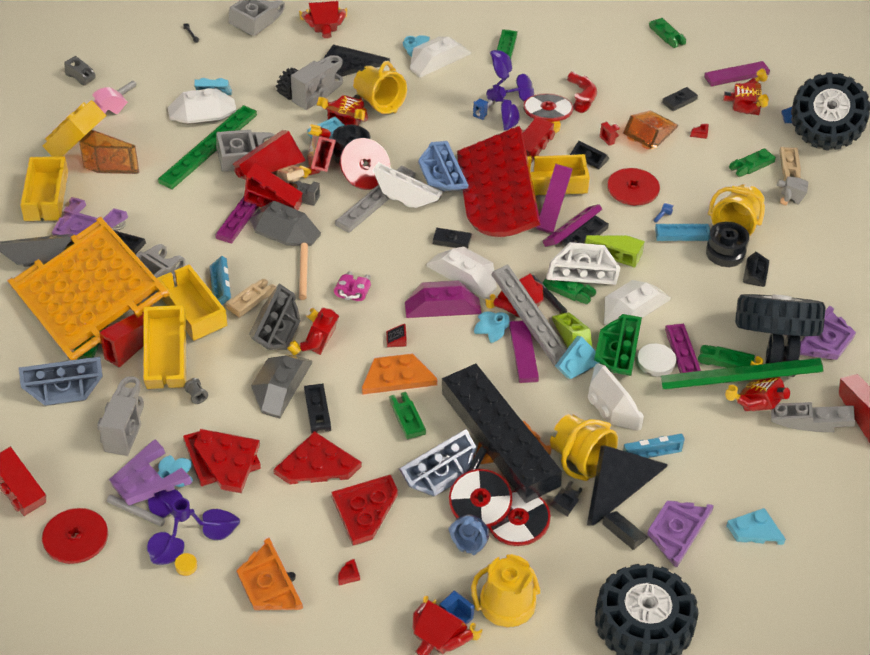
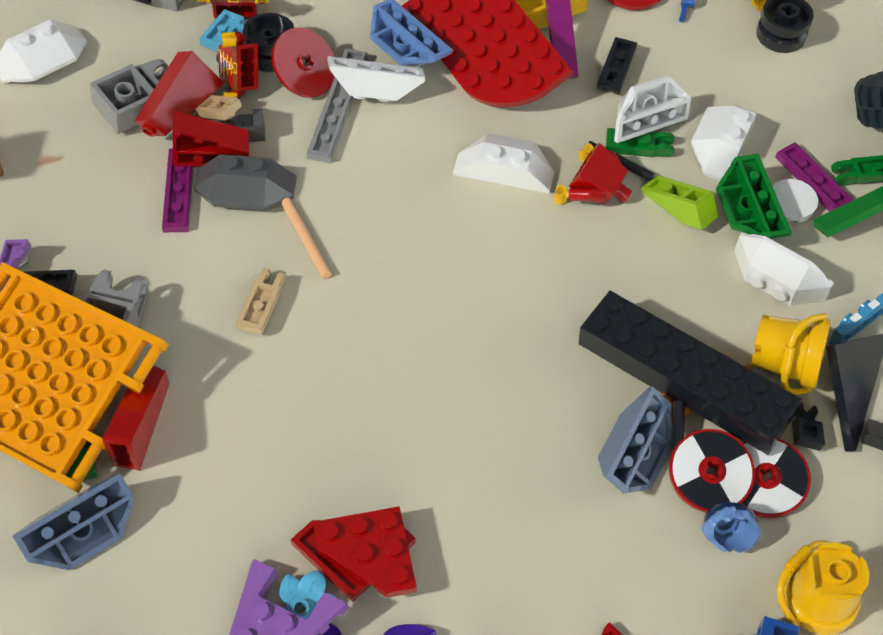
camera: 25 degrees left, 10 degrees up
(122, 418) = (197, 550): light grey brick -> none
(164, 346) = (199, 421): yellow piece -> none
(197, 393) = (268, 465): dark grey bush -> none
(201, 307) = (196, 339): yellow piece -> none
(205, 148) = (77, 108): green tile -> none
(220, 83) = (33, 18): medium azure plate -> none
(220, 280) = (209, 294): dark azure plate -> none
(277, 320) = (316, 323): dark grey wedge -> none
(279, 382) = (367, 409): dark grey wedge -> none
(317, 407) = (438, 426): black plate -> none
(317, 461) = (481, 502): red plate -> none
(320, 332) = (384, 317): red torso -> none
(354, 288) = (383, 239): dark pink piece -> none
(365, 507) = (579, 543): red plate -> none
(397, 336) = (477, 285): slope -> none
(397, 373) = (507, 337): orange wing -> none
(407, 416) = (555, 391): green hinge -> none
(442, 299) = (501, 215): magenta wedge -> none
(451, 238) = (463, 126): black plate -> none
(490, 325) = (579, 228): medium azure plate -> none
(523, 352) = (638, 248): magenta tile -> none
(529, 313) = (627, 197): light grey tile -> none
(572, 225) = (596, 60): magenta tile -> none
(577, 358) = (711, 235): medium azure wing -> none
(621, 247) = (678, 65): lime slope -> none
(682, 232) = (723, 24): dark azure plate -> none
(756, 270) = (827, 44): black slope -> none

